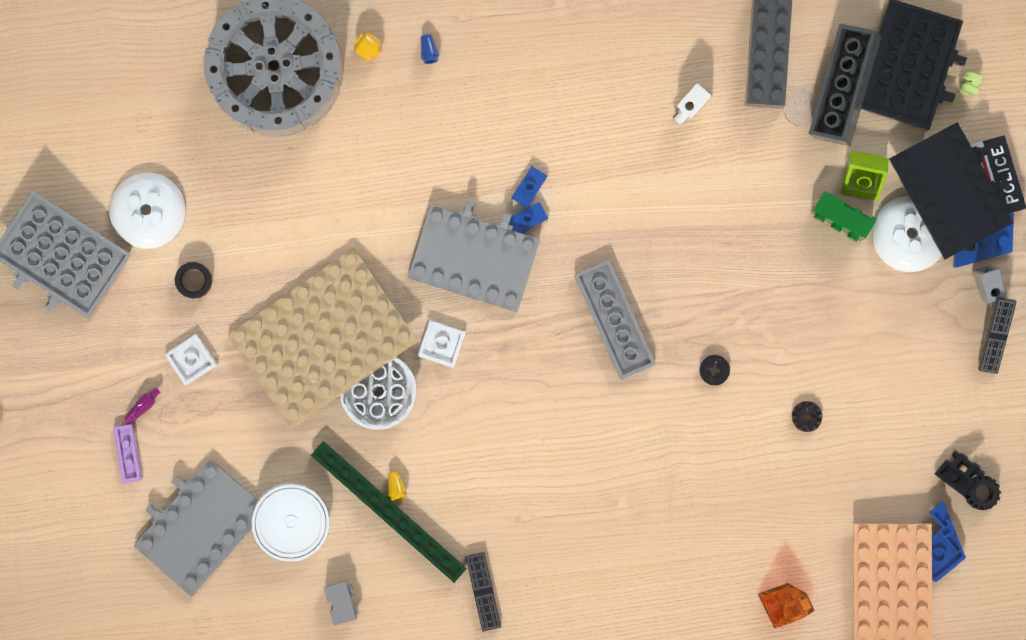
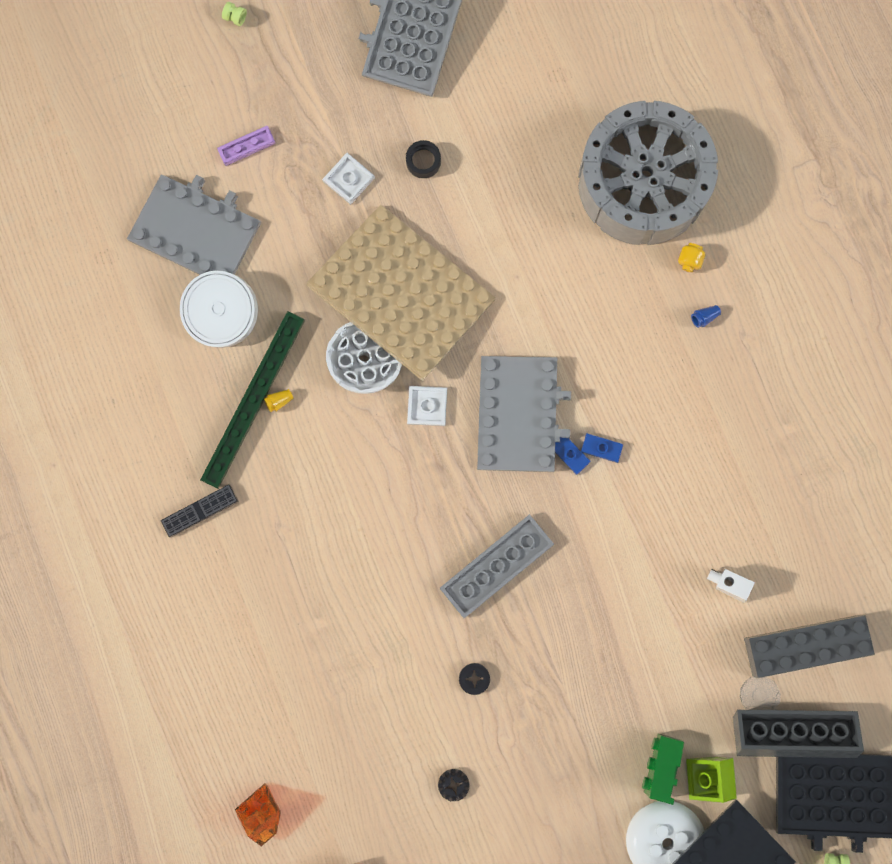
camera: 80 degrees right, 5 degrees down
(143, 404) = (293, 145): magenta piece -> none
(166, 213) = (473, 117): white brick -> none
(341, 598) = (154, 379): light grey brick -> none

